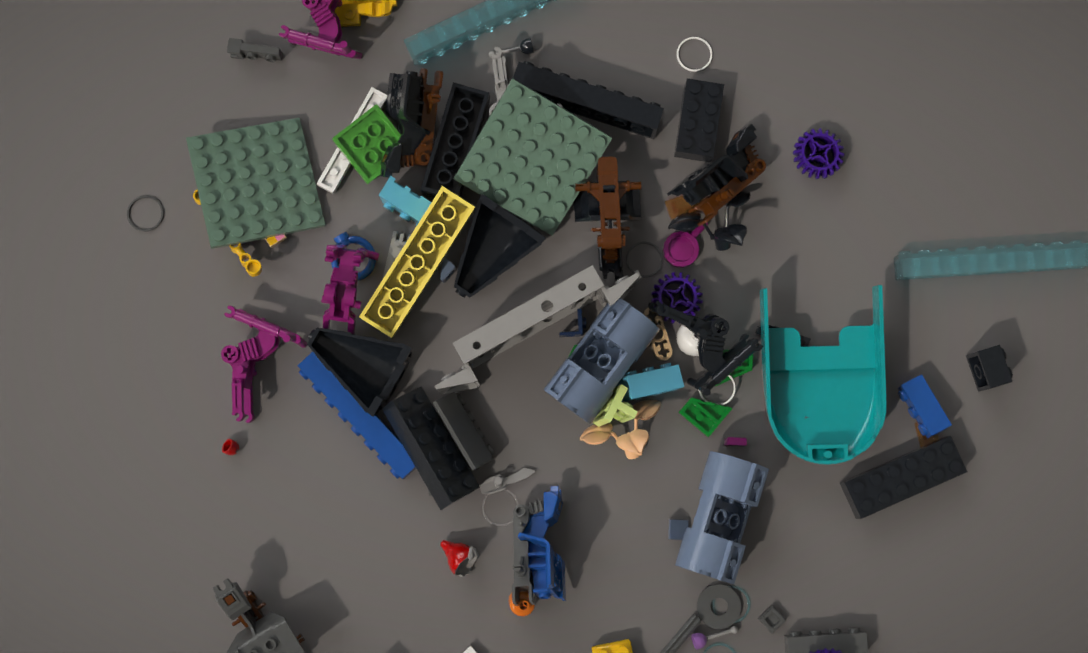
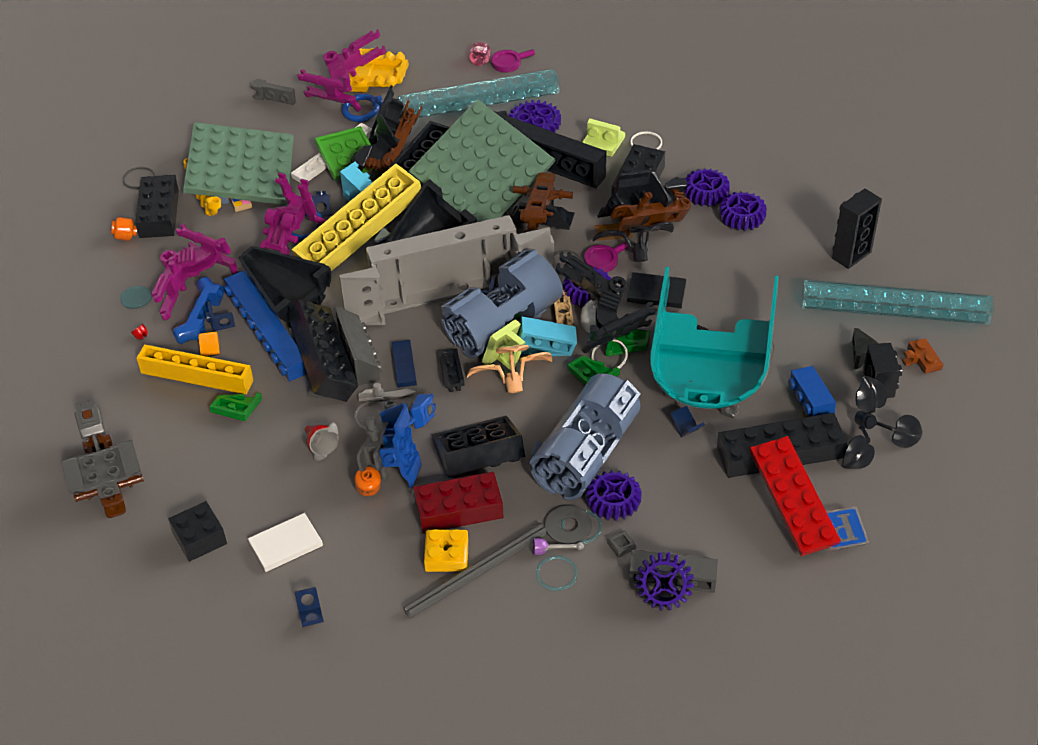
camera: 15 degrees right, 35 degrees down
(160, 304) = (123, 229): none -> orange head
(185, 263) = (157, 206): none -> black brick
(207, 394) = (136, 297): none -> clear light blue piece
(288, 381) = (195, 322): none -> blue plate
(298, 415) = (216, 319): none -> dark blue bracket
(307, 494) = (195, 369): none -> yellow brick
(308, 450) = (209, 344): none -> light orange slope
(362, 217) = (321, 196): none -> dark blue bracket
(363, 527) = (235, 405): none -> green wing
(379, 46) = (376, 102): none -> blue piece
(513, 436) = (404, 363): none -> dark blue tile
(561, 60) = (538, 114): none -> dark purple gear
(563, 436) = (451, 369): none -> black hinge
(613, 608) = (458, 502): none -> dark red brick
(614, 531) = (479, 446): none -> black slope
(647, 61) = (604, 136): none -> yellowish green bracket
(743, 284) = (648, 288): none -> black tile
(761, 561) = (614, 488): none -> dark purple gear
(767, 109) = (706, 187): none -> dark purple gear
(808, 469) = (684, 421): none -> dark blue bracket
(925, 545) = (794, 496): none -> red plate
(948, 183) = (856, 228): none -> black brick
(964, 333) = (859, 347): none -> pearl dark grey slope
(971, 567) = (848, 527): none -> piece
(982, 432) = (868, 398): none -> black plant
(1023, 327) = (923, 354): none -> dark orange plate

